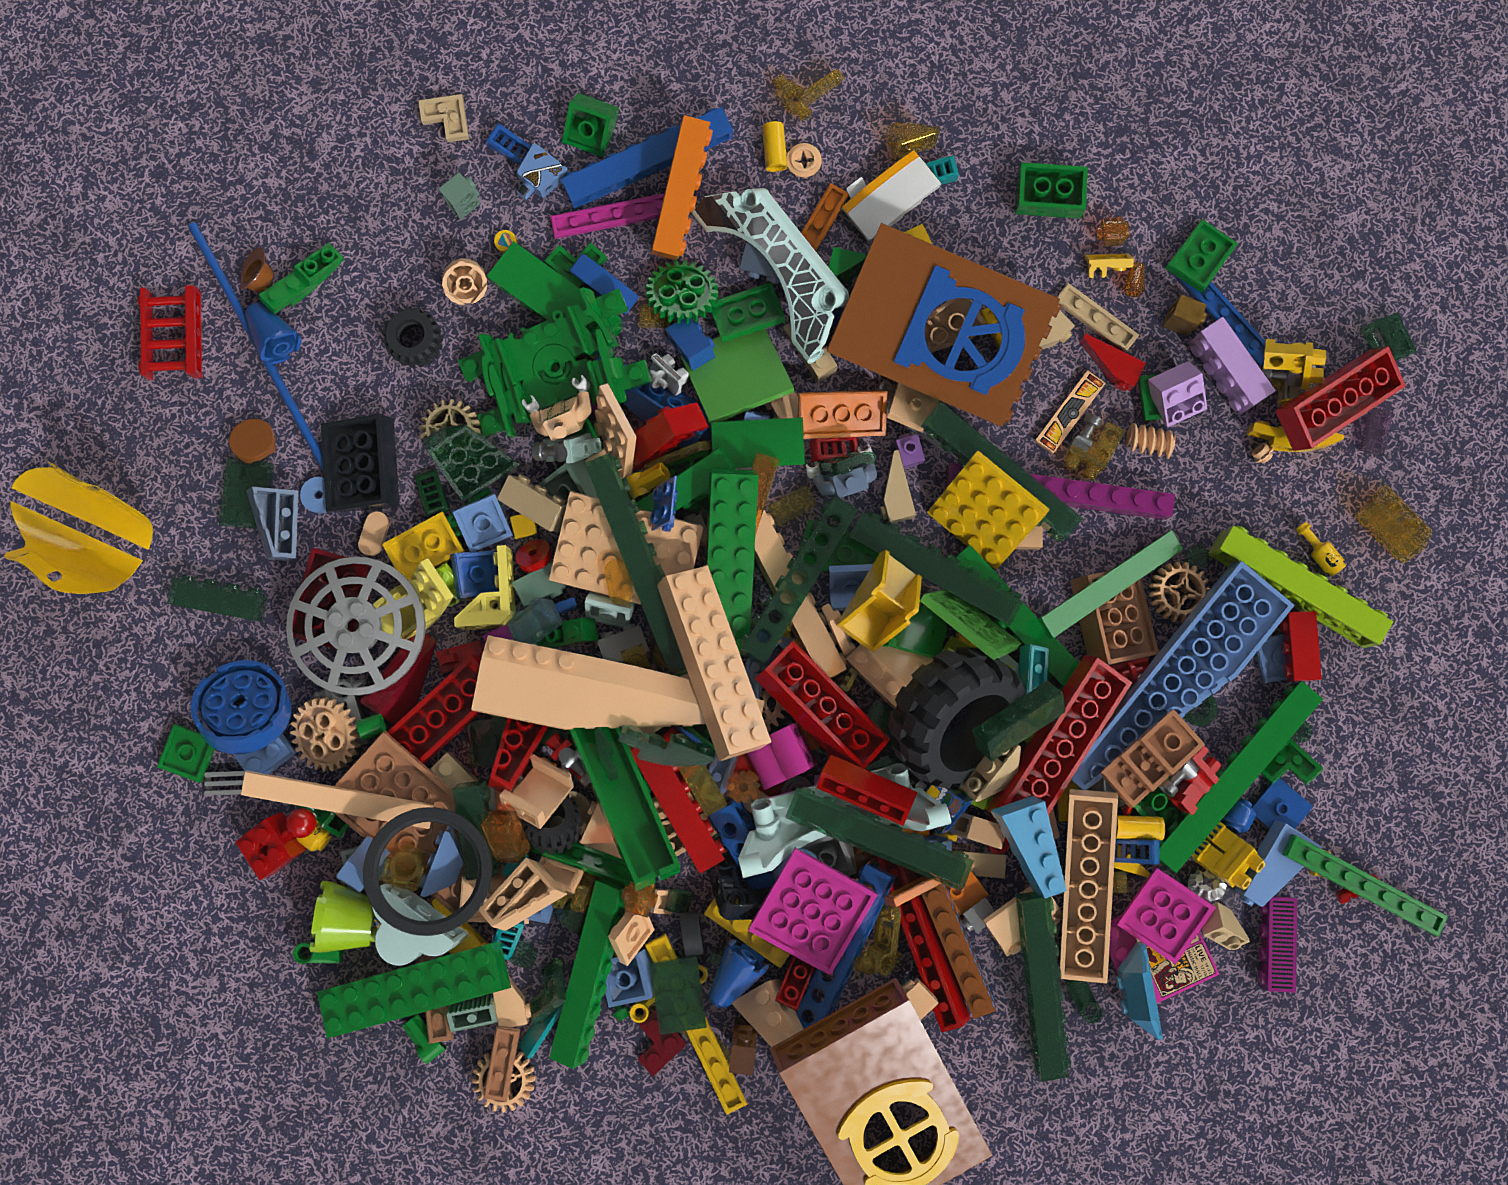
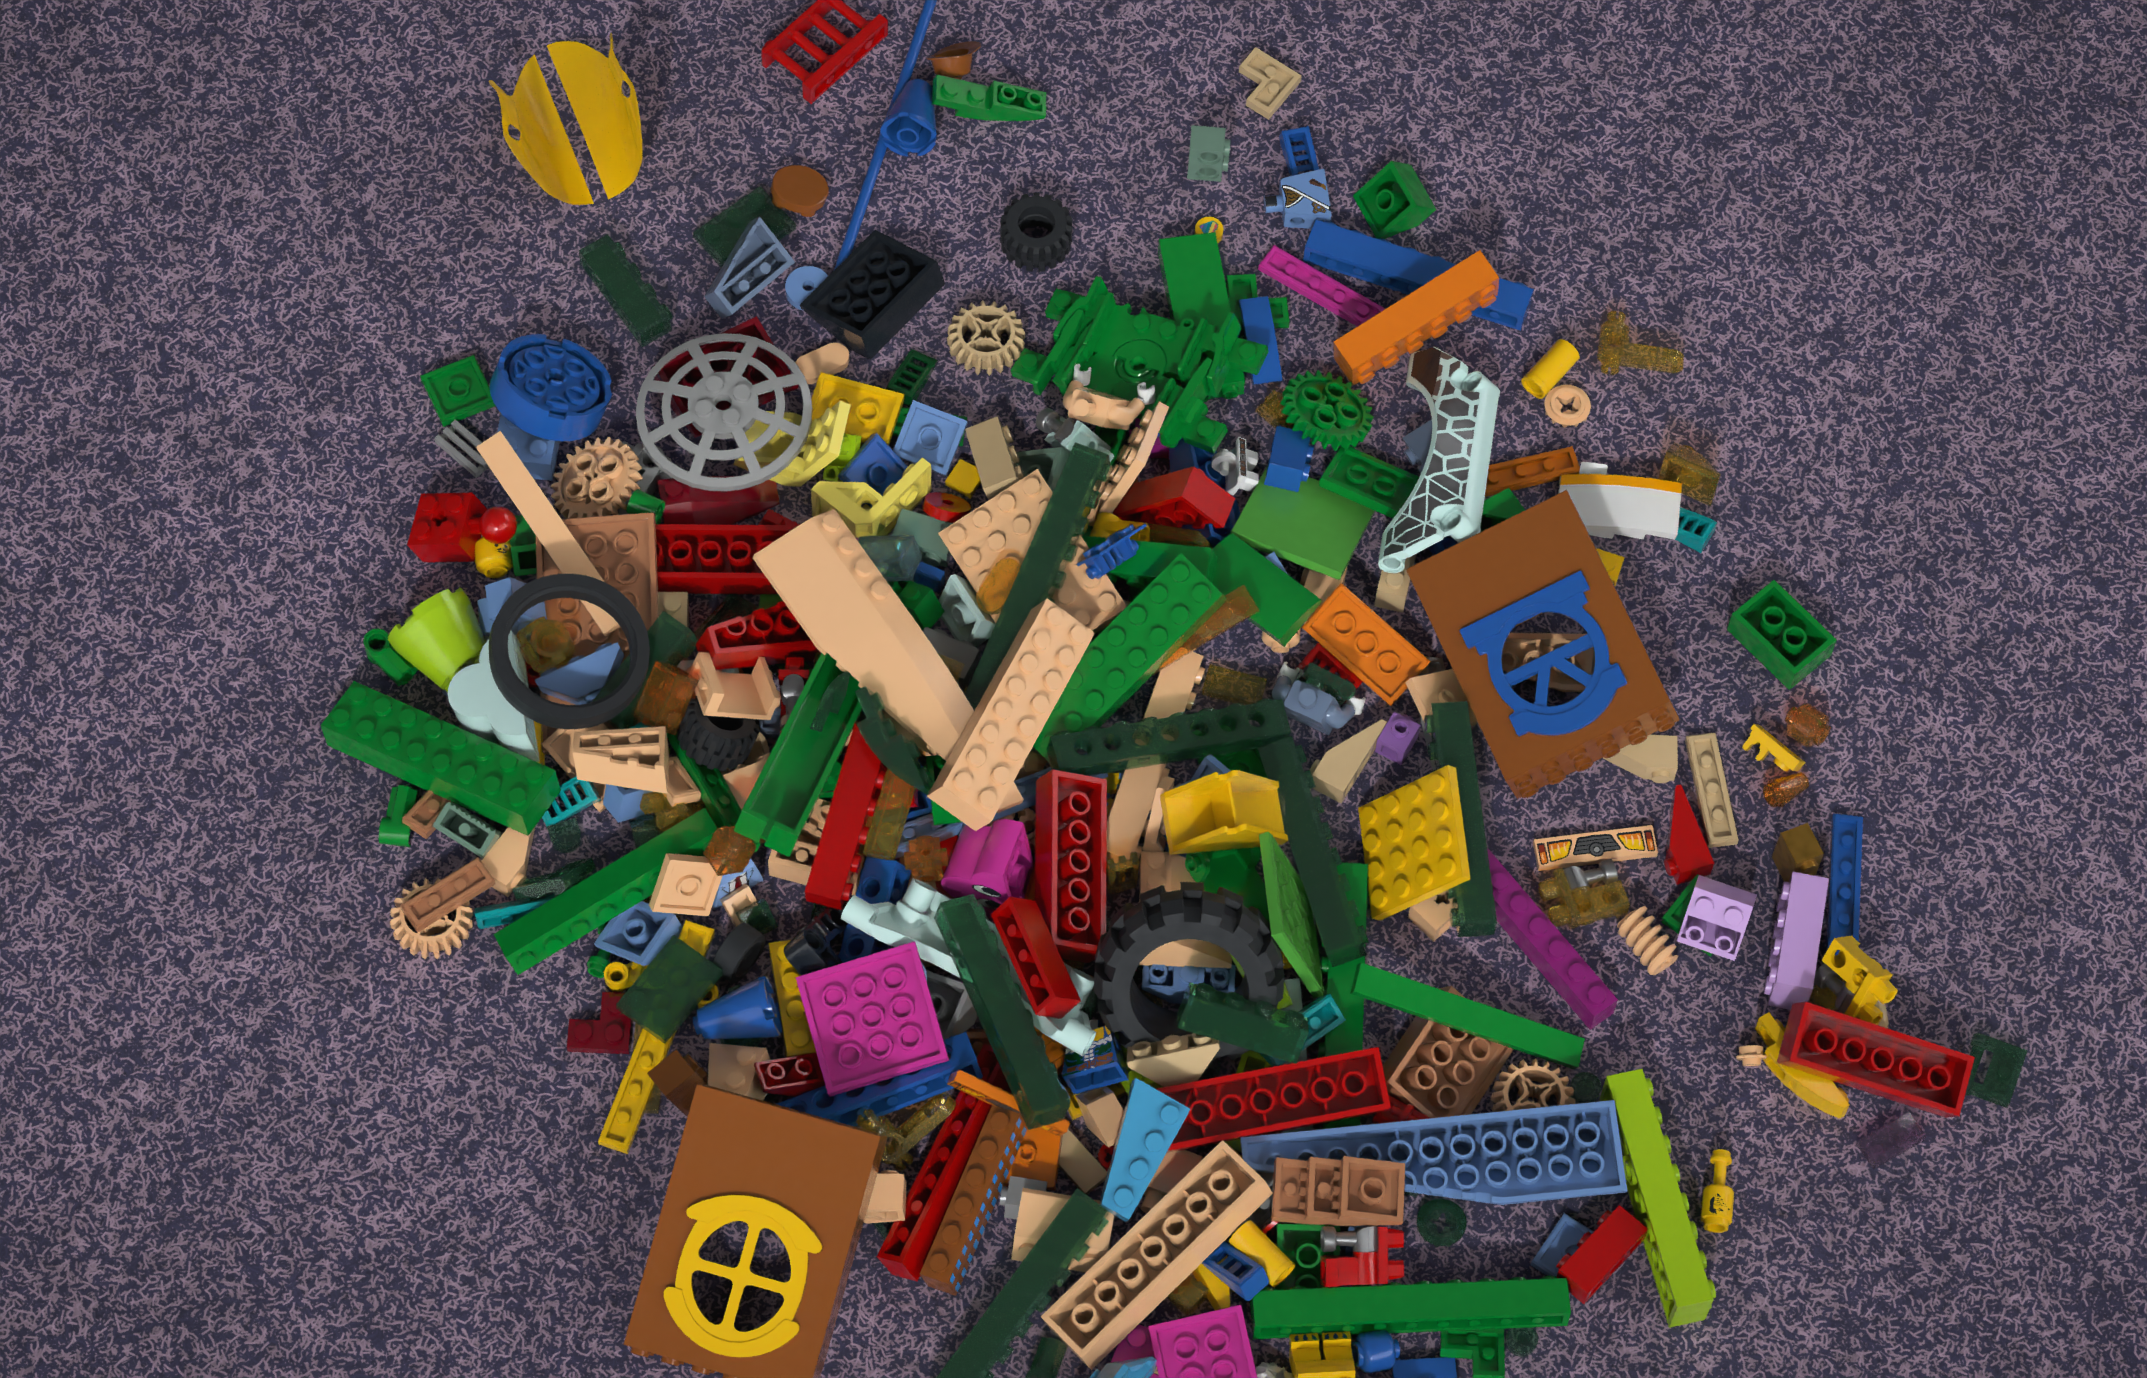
camera: 45 degrees right, 20 degrees down
(464, 281) = (1125, 234): light nougat cylinder -> none
(467, 459) = (974, 368): clear green wedge -> none
(1201, 256) = (1876, 825): green tile -> none
(1394, 524) = (1820, 1238): clear yellow slope -> none

